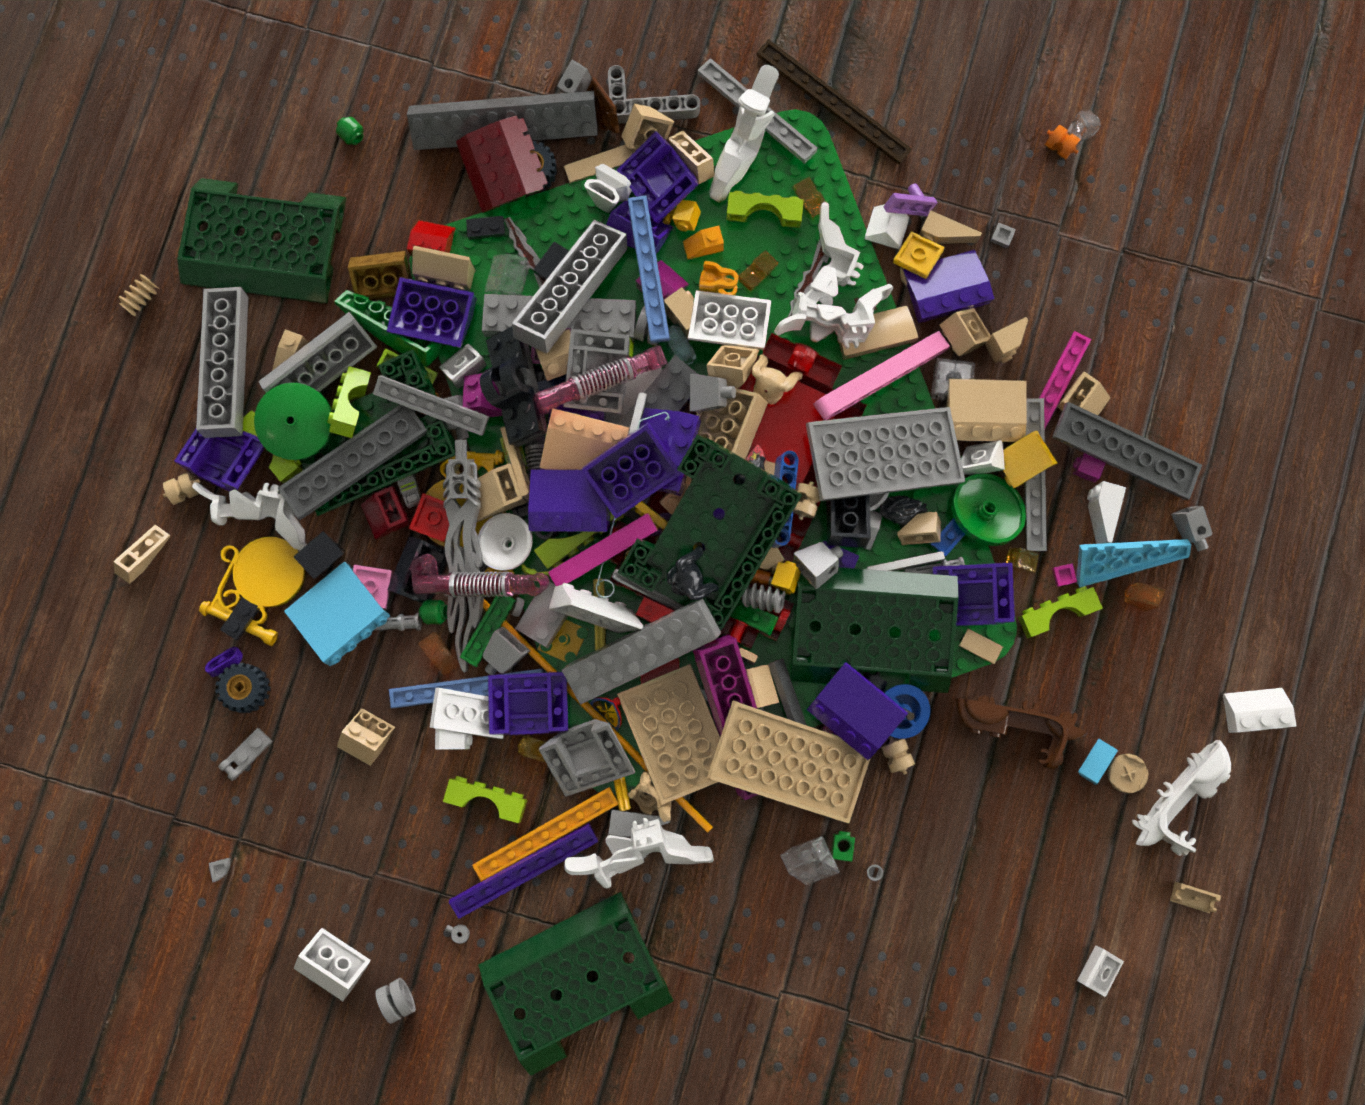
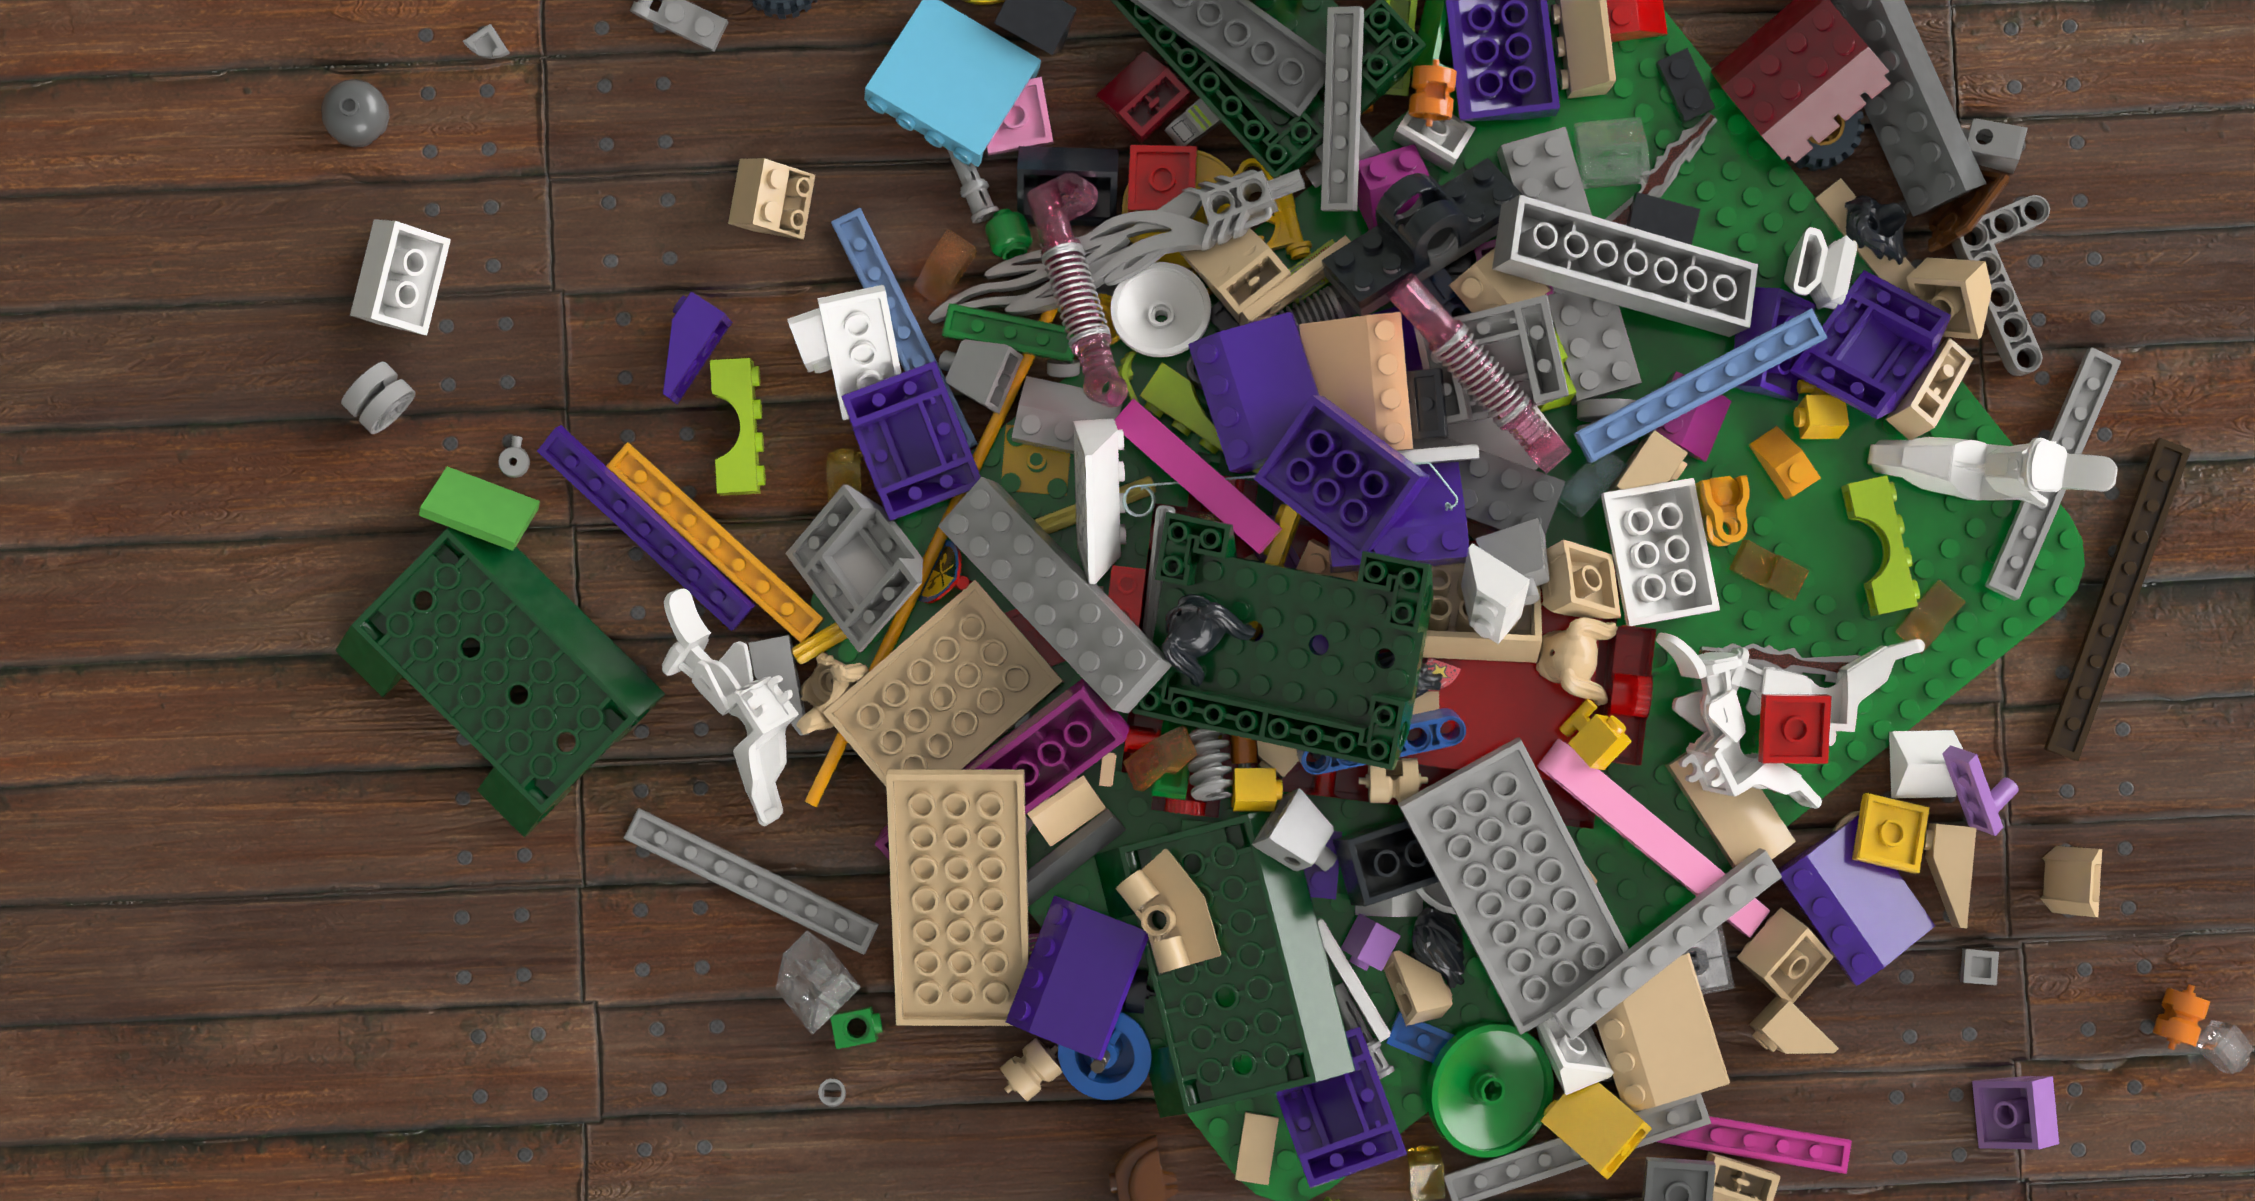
camera: 65 degrees right, 5 degrees up
(229, 958) = (355, 113): none -> dark grey cylinder
(425, 805) = (693, 338): none -> dark purple slope
(437, 355) = (1432, 93): none -> orange wheel
(479, 963) = (479, 508): none -> bright green tile
(596, 154) = (1877, 227): none -> black hair
(607, 412) = (1427, 403): none -> black plate
(723, 410) = (1492, 594): none -> white slope
(741, 878) = (751, 881): none -> light grey tile
(750, 623) = (1164, 754): none -> clear orange slope
(821, 382) = (1598, 738): none -> yellow brick
(848, 280) = (1794, 728): none -> red plate
(851, 638) = (1189, 927): none -> tan panel
(888, 546) = (1369, 943): none -> medium lavender brick
(941, 388) = (1665, 943): none -> light grey plate
(974, 171) = (2072, 880): none -> tan slope
(1086, 242) = (2016, 1112): none -> medium lavender slope

